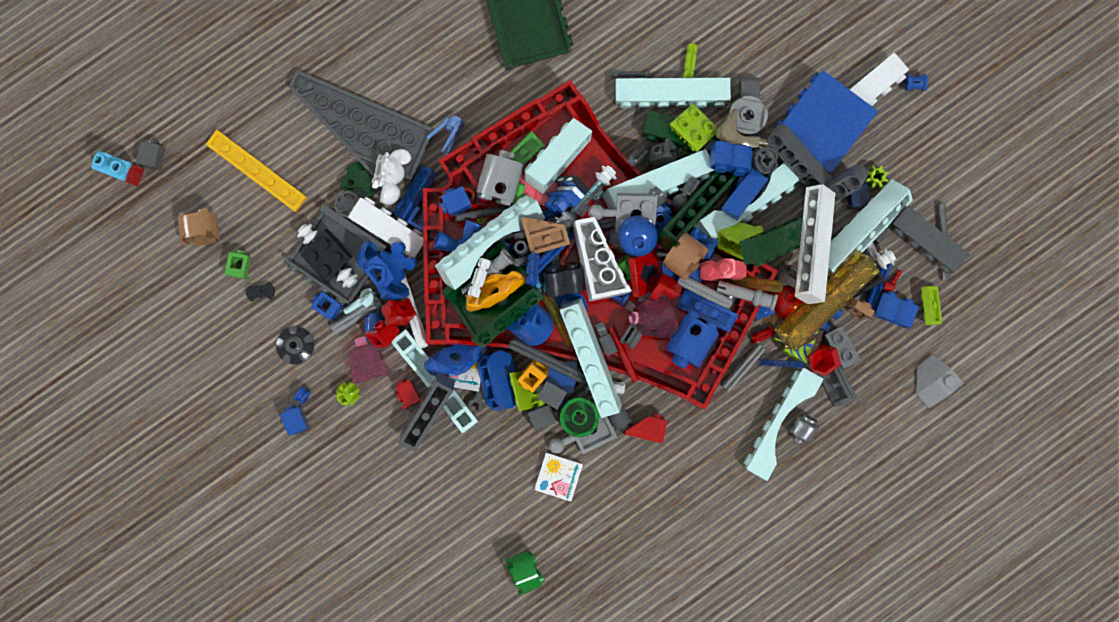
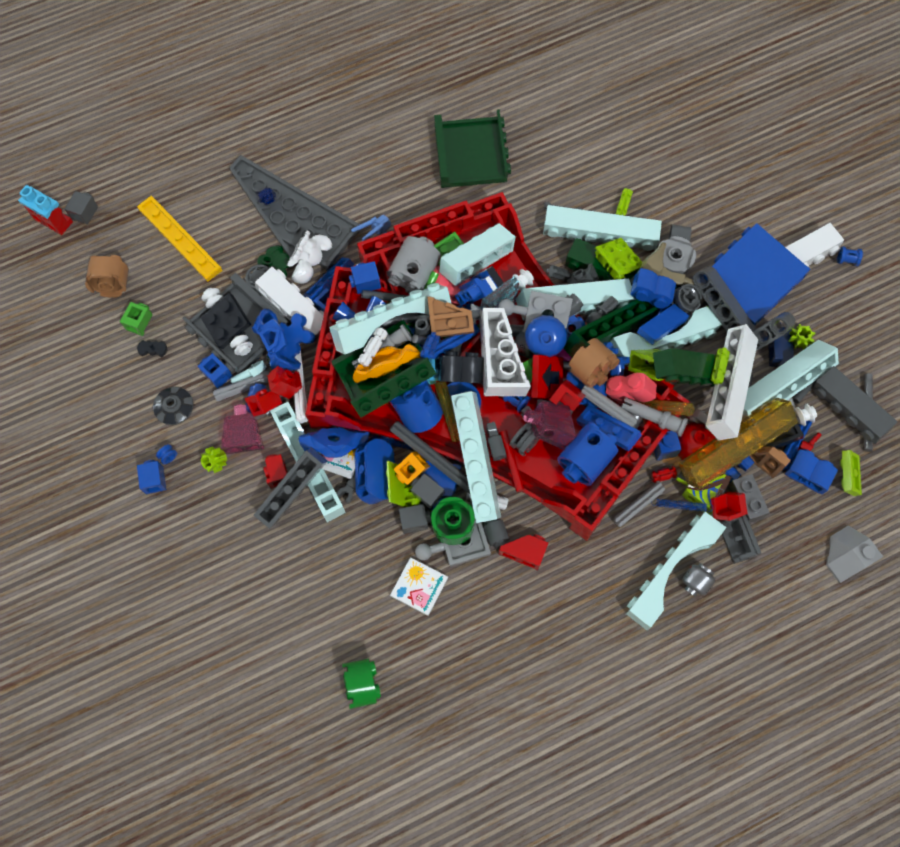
camera: 10 degrees right, 15 degrees down
(335, 115) = (267, 196): none -> clear blue plate
(802, 232) = (720, 365): none -> lime axle

